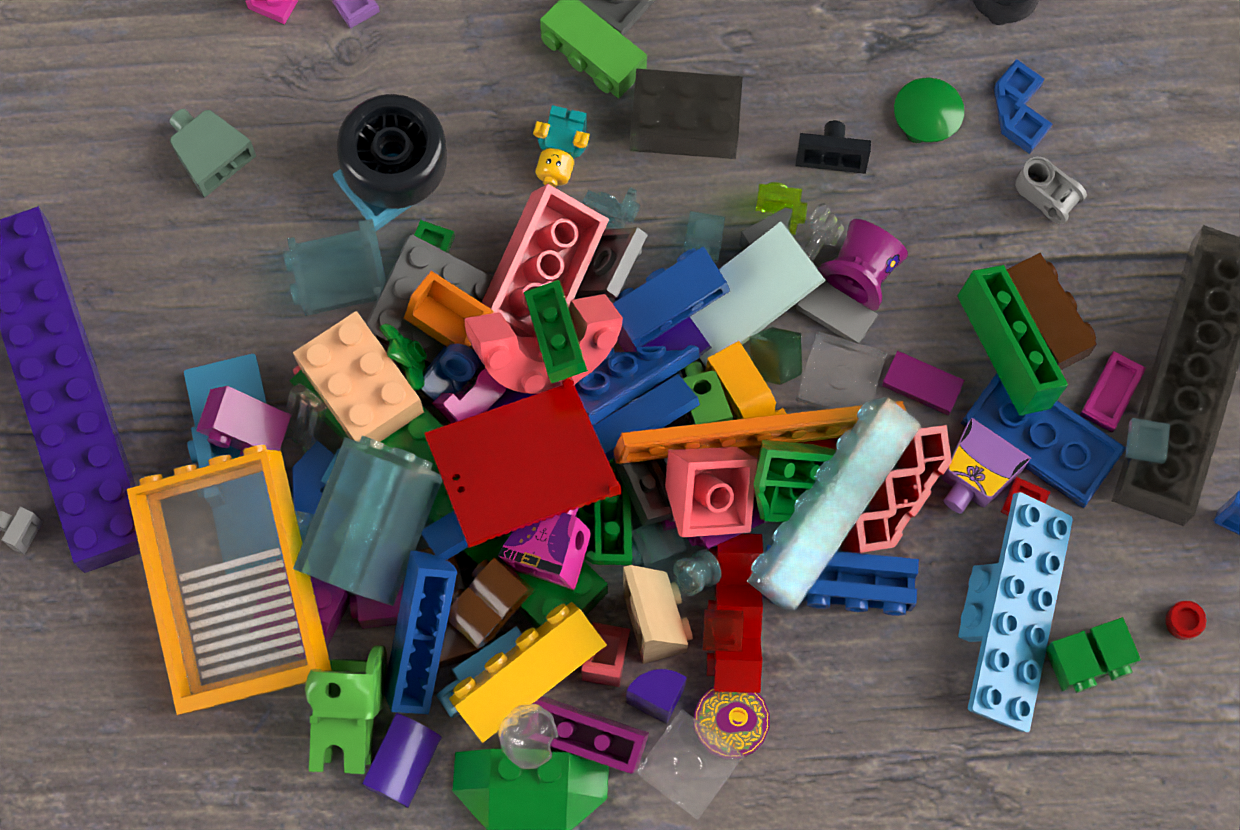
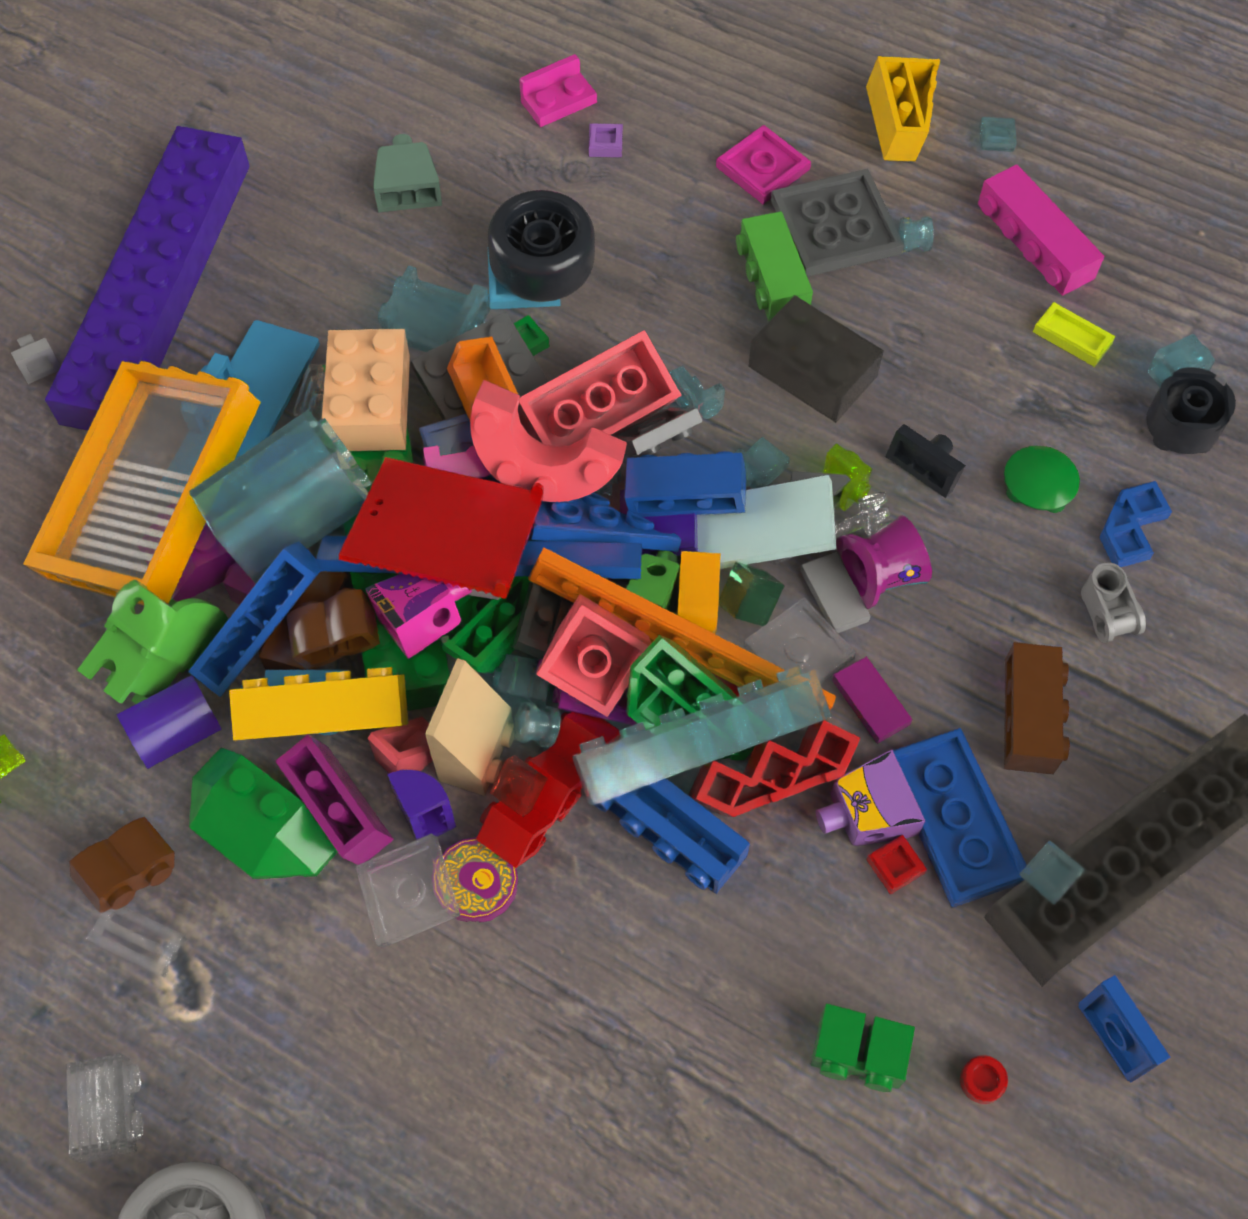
camera: 35 degrees right, 10 degrees down
(241, 421) = (258, 366): brick -> none
(408, 355) = (428, 398): green plate -> none
(459, 362) = (459, 427): blue tile -> none
(527, 735) = (272, 757): clear hair -> none
(555, 331) = (555, 440): green plate -> none
(561, 143) = (690, 323): piece -> none
(1012, 340) = (979, 706): green brick -> none
(1013, 612) = (812, 957): dark azure bracket -> none
(1112, 391) = (1054, 818): dark pink tile -> none

